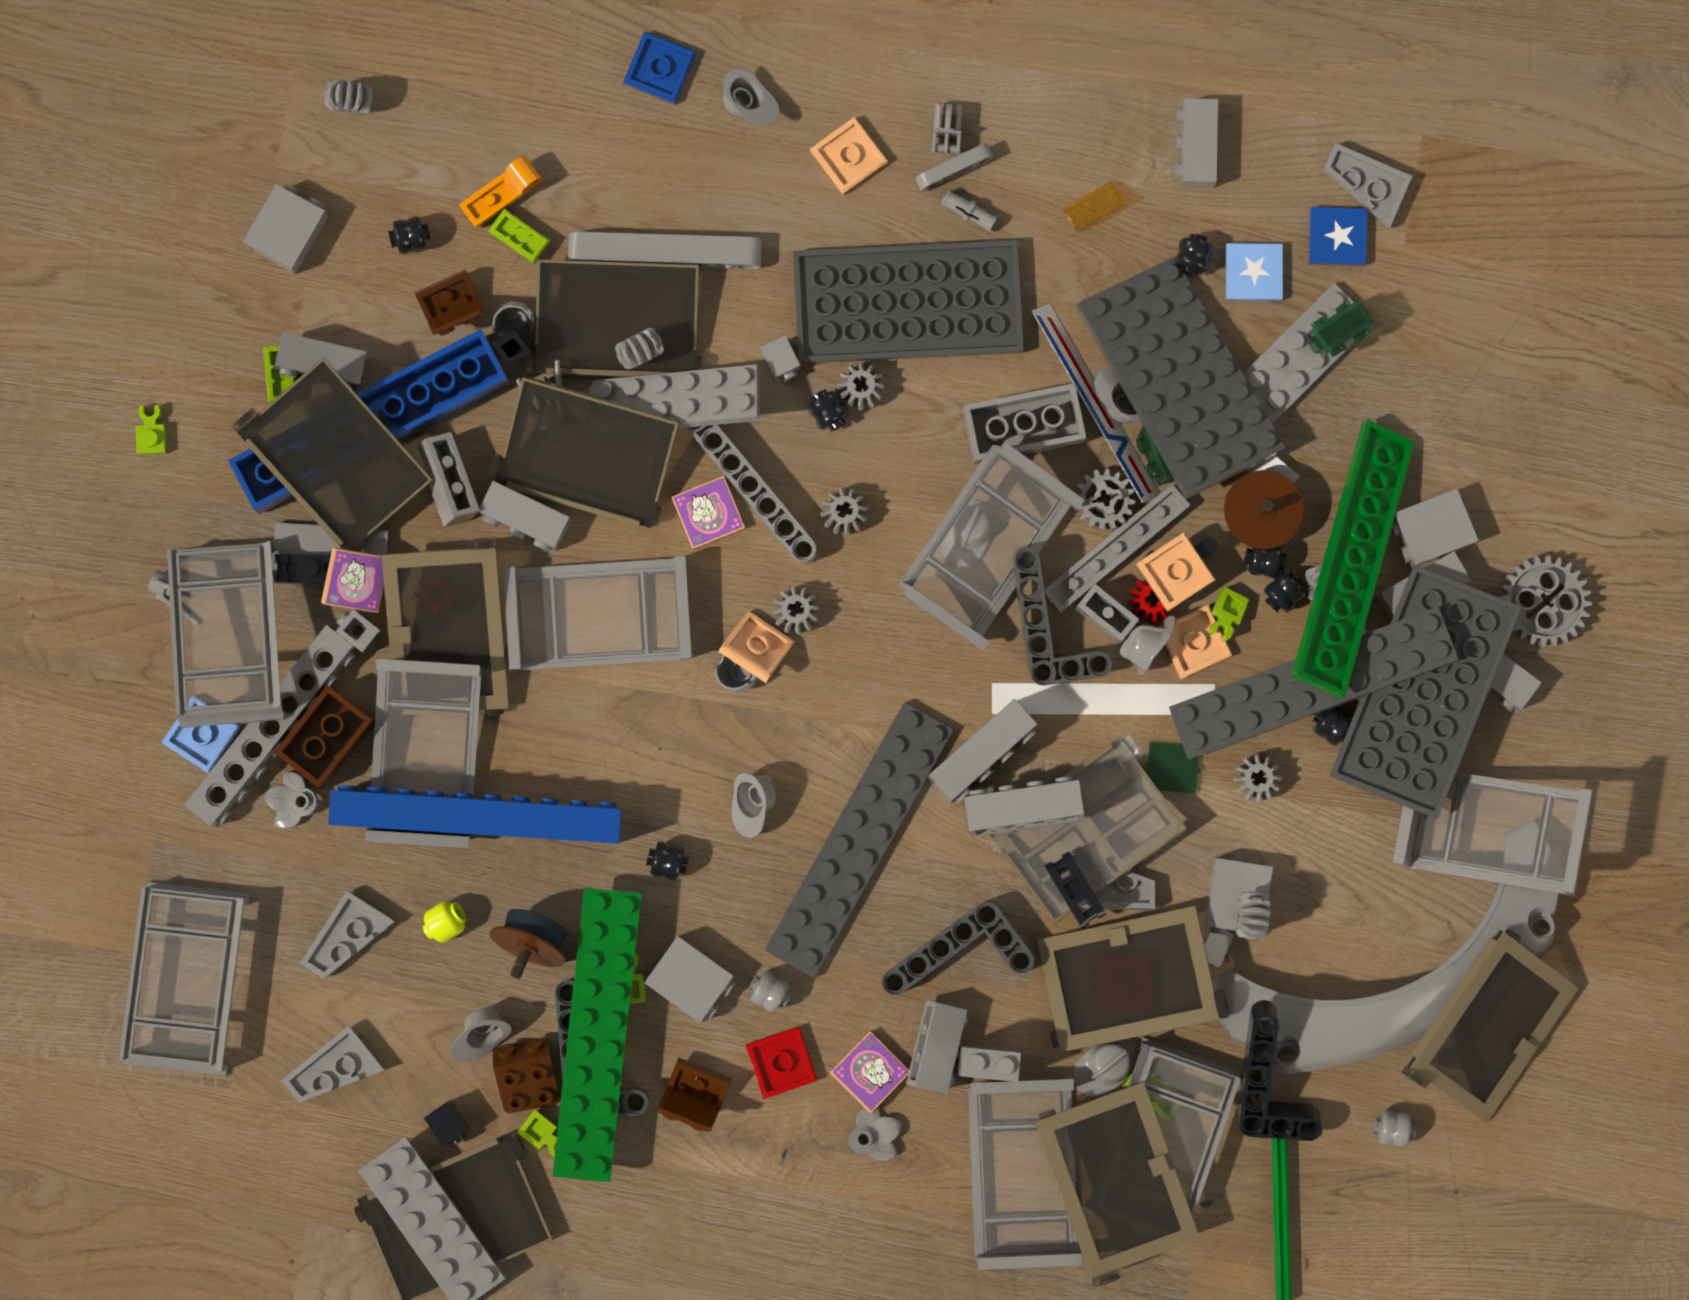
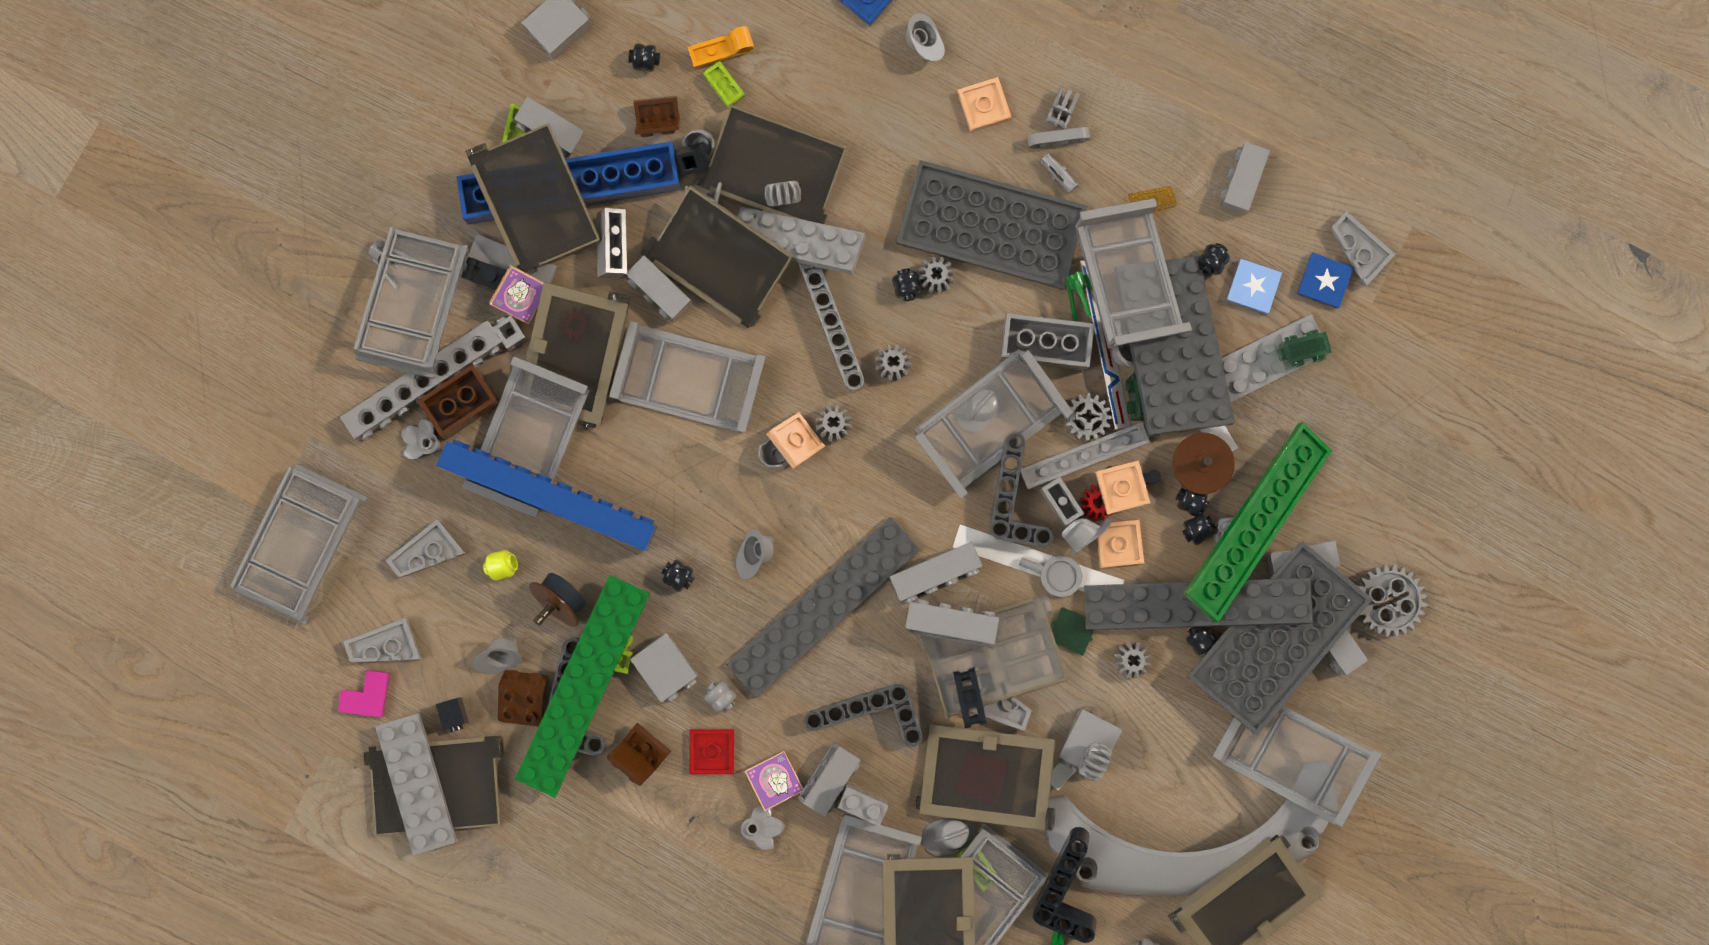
camera: 25 degrees right, 0 degrees up
(151, 435) = (409, 142): lime plate -> none
(201, 744) = (369, 377): light blue tile -> none
(339, 1143) = (371, 700): none -> dark pink tile
(539, 1131) = (517, 742): lime plate -> none
(700, 250) = (854, 138): light grey beam -> none
(708, 512) = (793, 331): tile -> none
(781, 359) = (884, 236): light grey brick -> none
(1037, 339) = (1076, 283): none -> green plant
(1096, 308) = (1129, 273): none -> clear piece
(1133, 705) = (1059, 575): none -> light grey piece
(1229, 610) = (1153, 529): lime plate -> none
(1433, 528) = (1325, 519): light grey brick -> none

